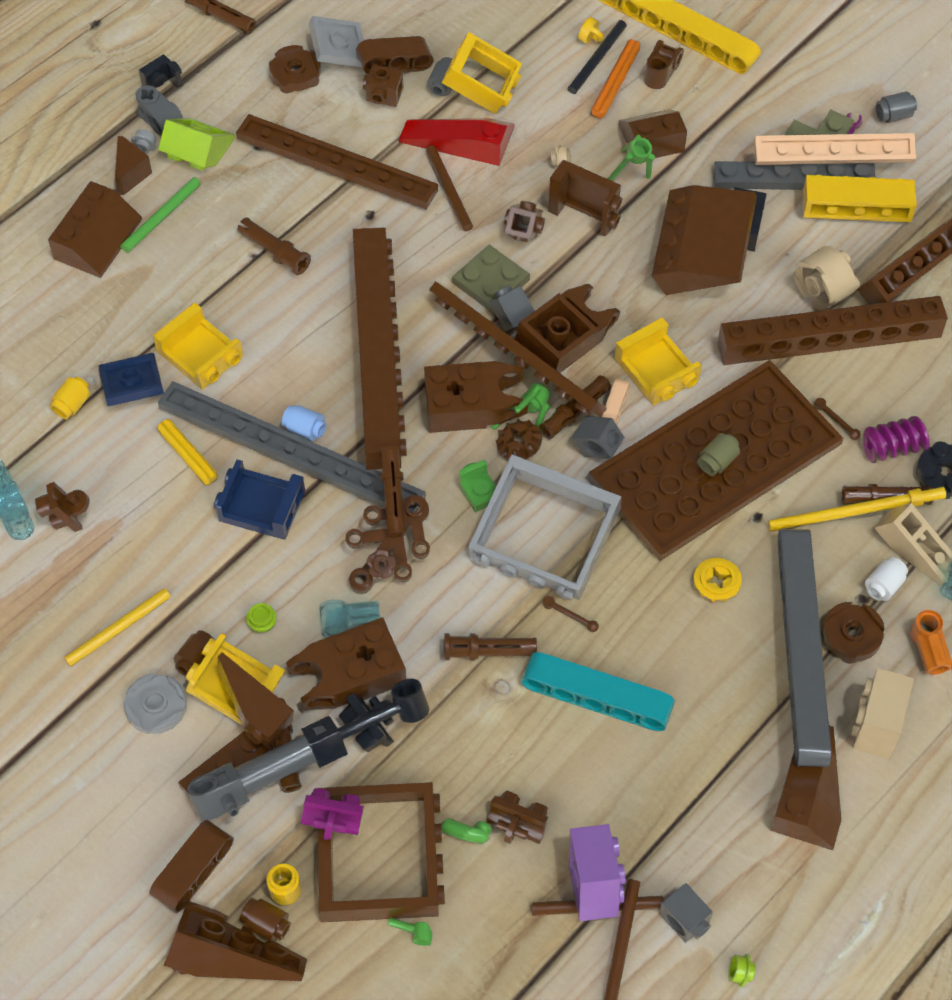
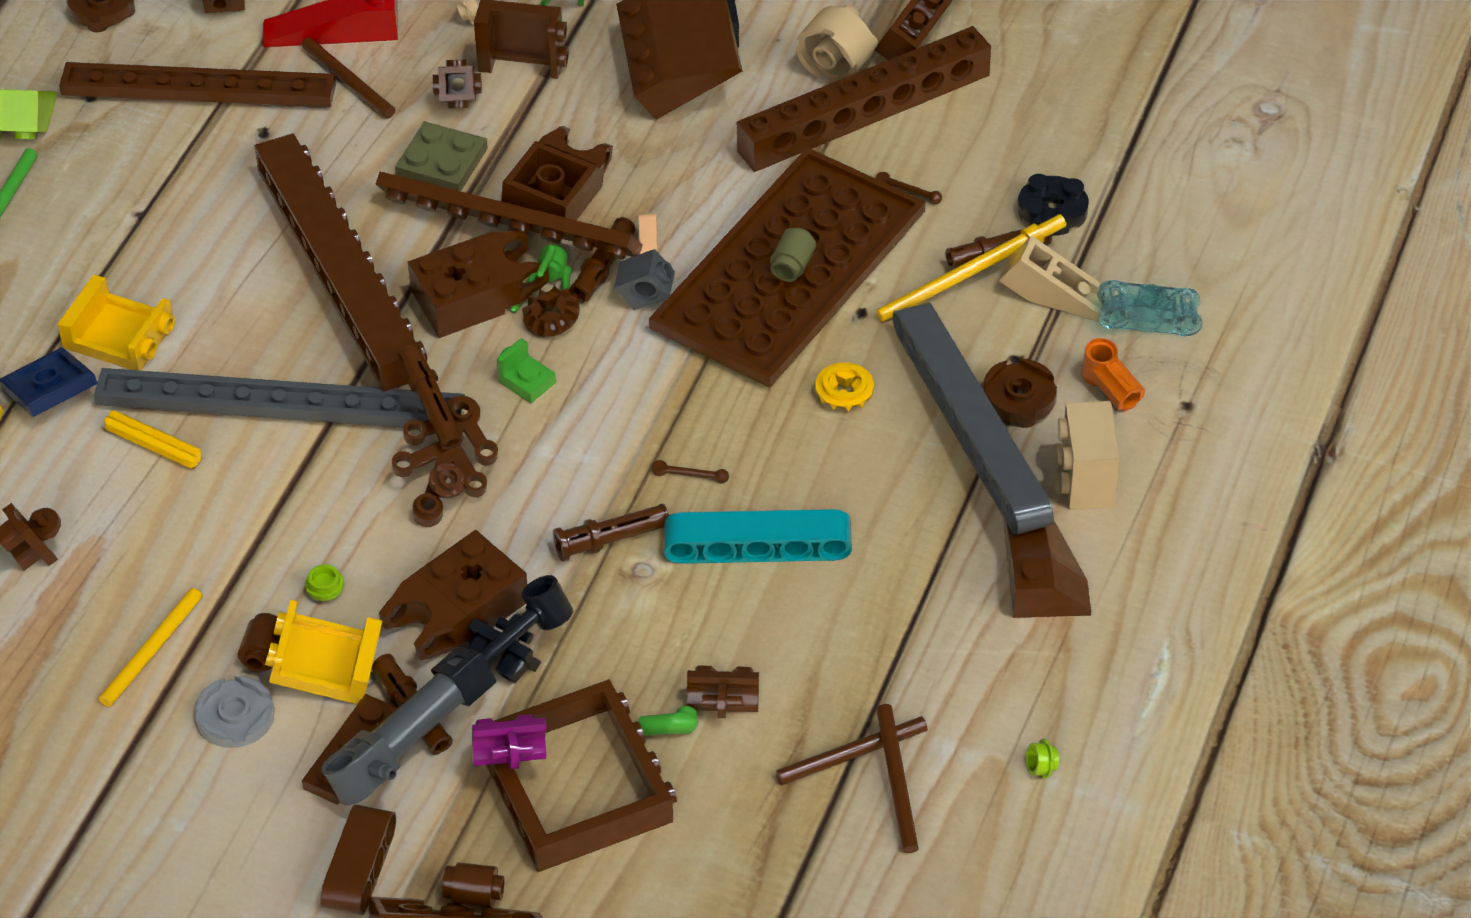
camera: 20 degrees left, 10 degrees down
(259, 501) = (266, 464): dark blue panel -> none
(259, 710) = (365, 660): reddish brown slope -> none
(282, 251) = (174, 195): reddish brown pin -> none
(284, 884) = (479, 837): yellow brick -> none
(304, 422) = (284, 365): light blue brick -> none
(338, 616) = (415, 551): clear light blue piece -> none
(421, 930) = (660, 838): bright green hand -> none
(511, 306) = (481, 173): dark grey brick -> none
(556, 483) = (630, 338): light grey window -> none
(595, 872) = (838, 706): medium lavender brick -> none
(656, 362) = (676, 188): yellow panel -> none
(686, 913) = (956, 722): dark grey brick -> none
(886, 579) = (1034, 328): white brick -> none
(895, 436) = (984, 185): magenta piece -> none

